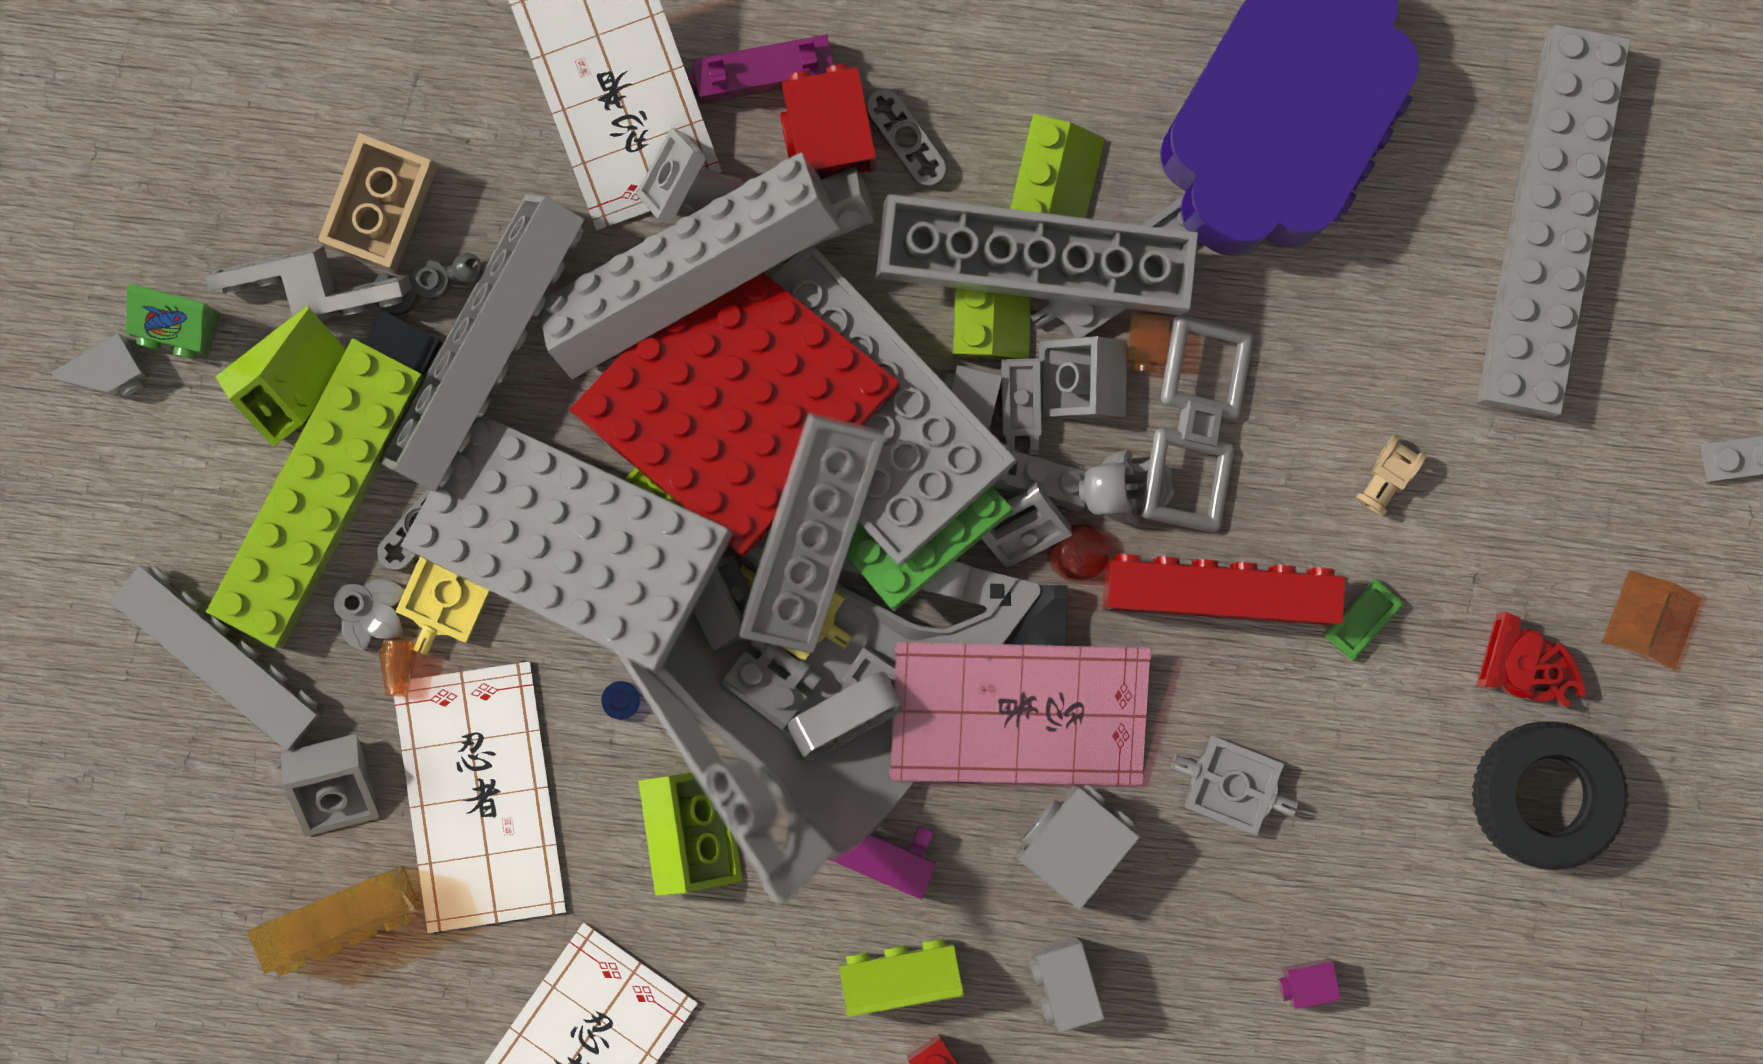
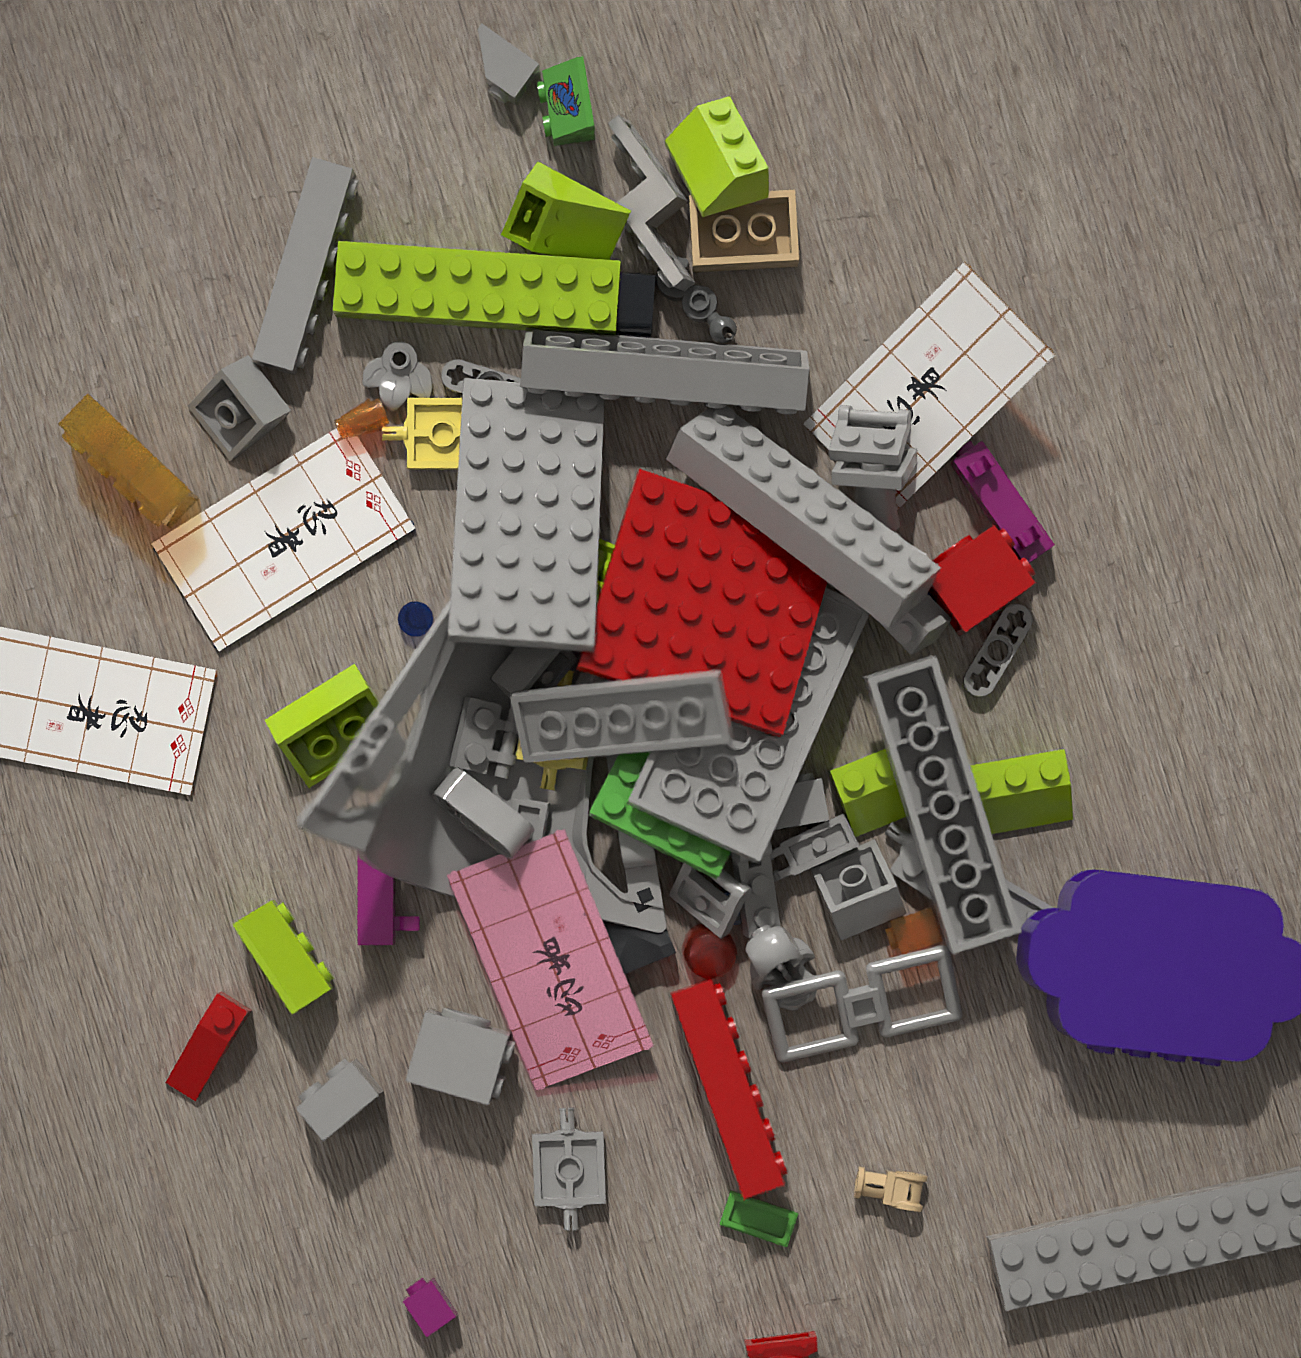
camera: 70 degrees right, 0 degrees up
(293, 194) = (718, 158): none -> lime slope
(645, 171) = (870, 444): none -> light grey plate

